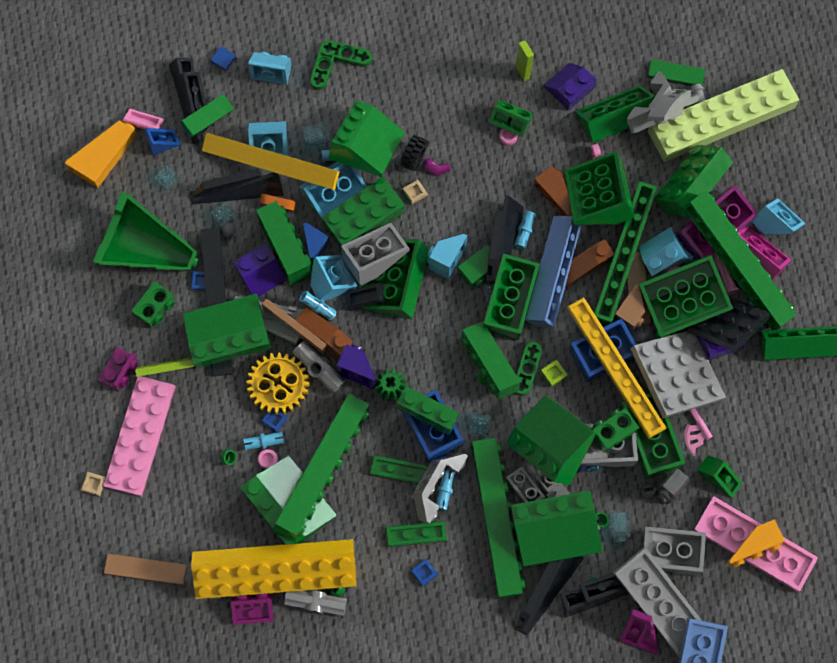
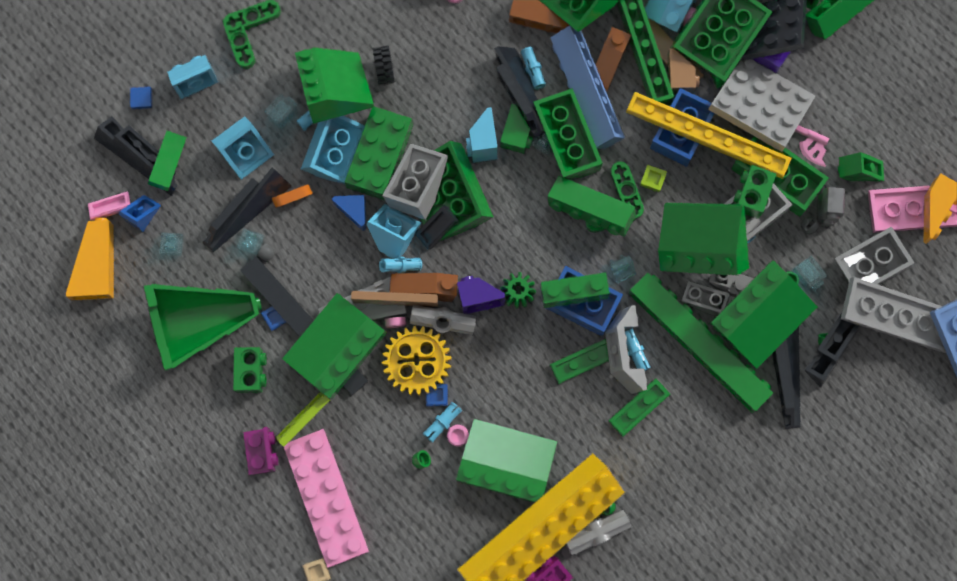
camera: 30 degrees left, 5 degrees up
(259, 270) = (323, 270): dark purple slope -> none
(271, 161) = (259, 162): yellow tile -> none
(283, 345) = (395, 322): none -> bright pink tile
(284, 243) = (327, 229): green brick -> none
(320, 469) = (515, 409): green brick -> none
(414, 192) = (409, 101): tan tile -> none
(424, 572) = (671, 436): blue tile -> none
(435, 169) = (411, 68): magenta arm -> none
(640, 632) = (896, 354): magenta wing -> none

